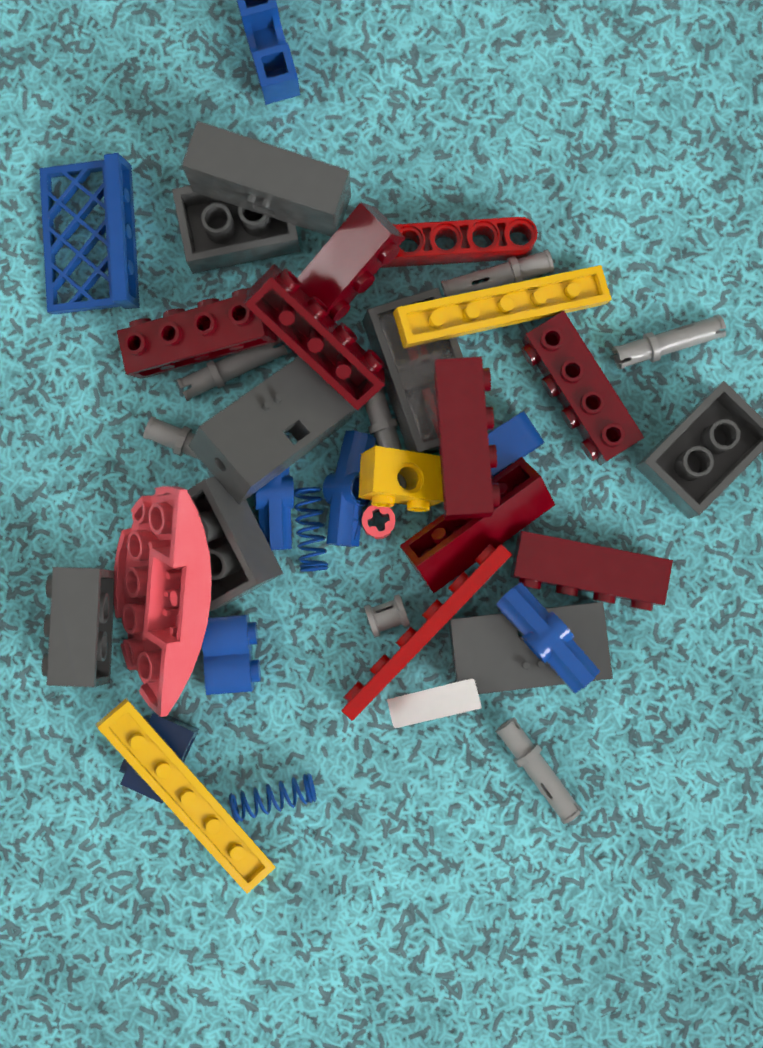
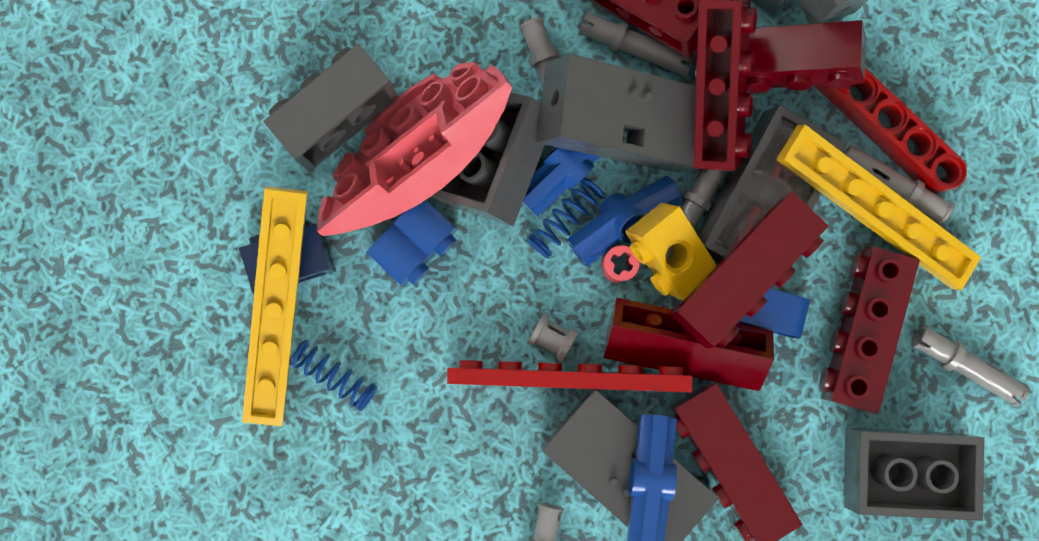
camera: 50 degrees right, 0 degrees up
(434, 703) = (518, 436): white sticker -> none

